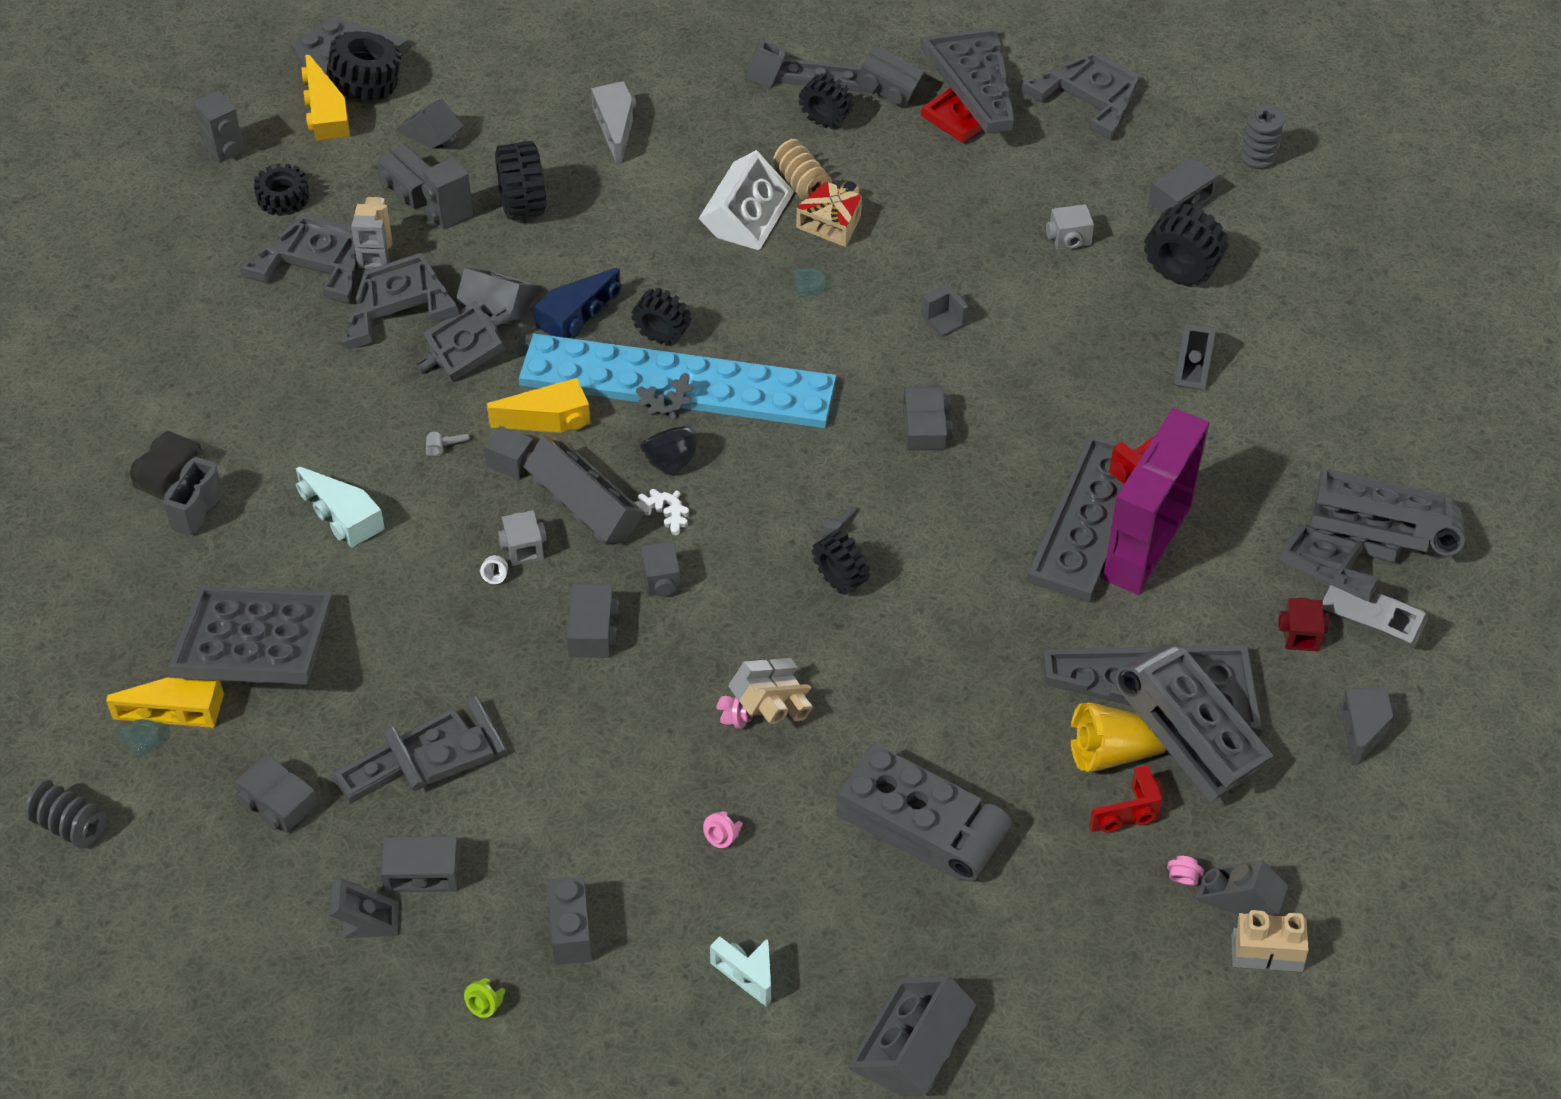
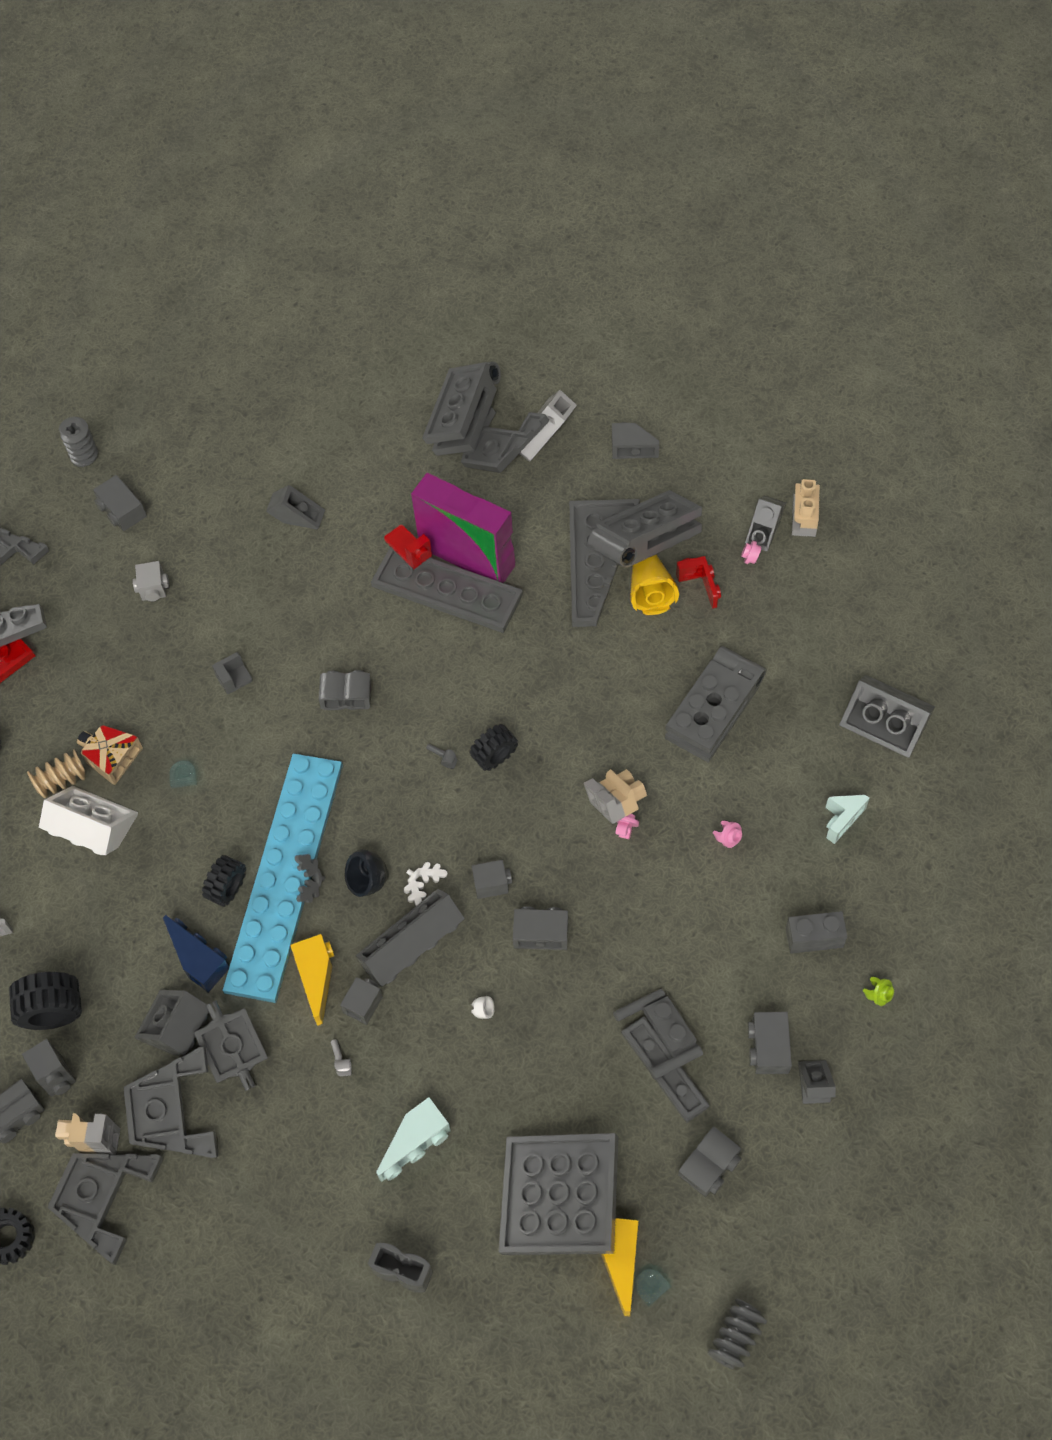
camera: 85 degrees left, 10 degrees up
(163, 463) = (356, 1302): clear smoke brick -> none
(522, 537) = (453, 986): light grey brick -> none
(1186, 245) = (193, 499): black tyre -> none
(1303, 624) = (549, 467): dark red brick -> none

